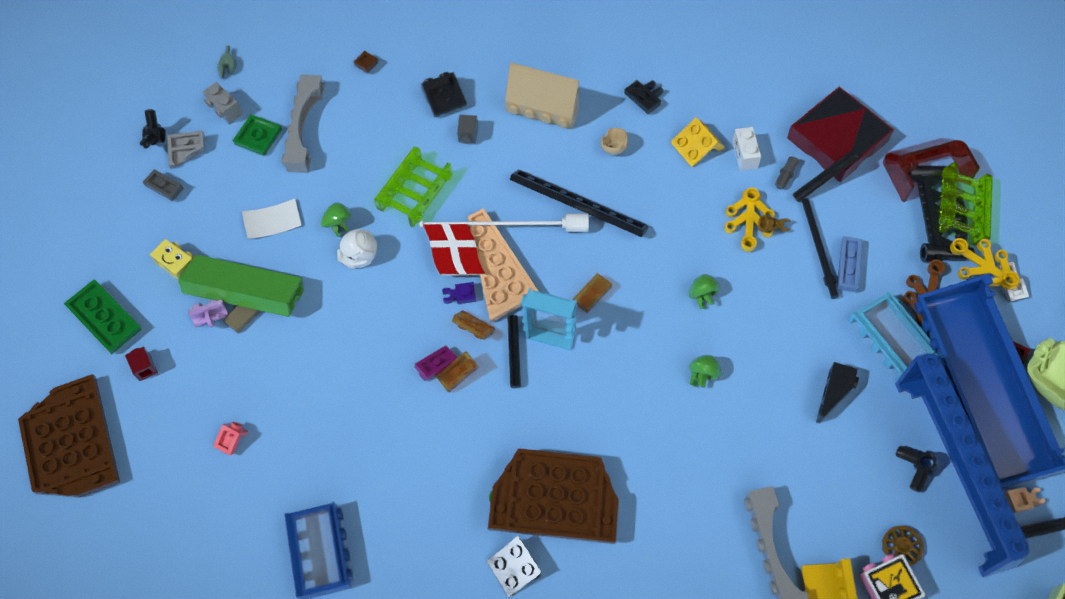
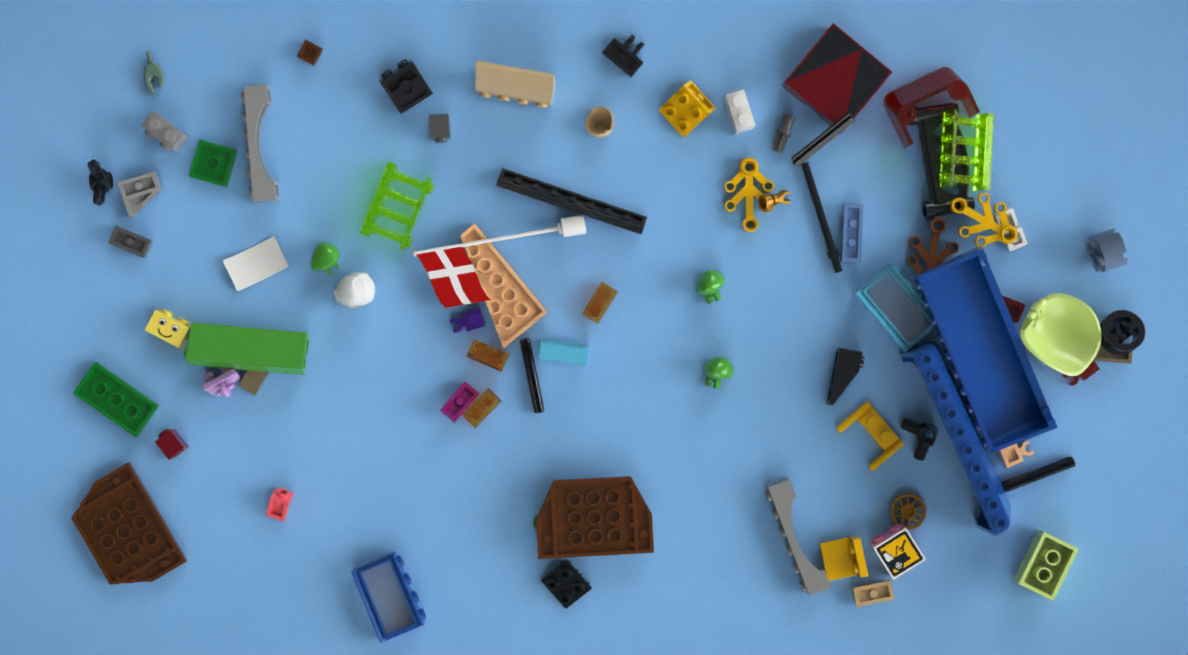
camera: 10 degrees left, 25 degrees up
(870, 454) = (877, 429): none -> yellow plate

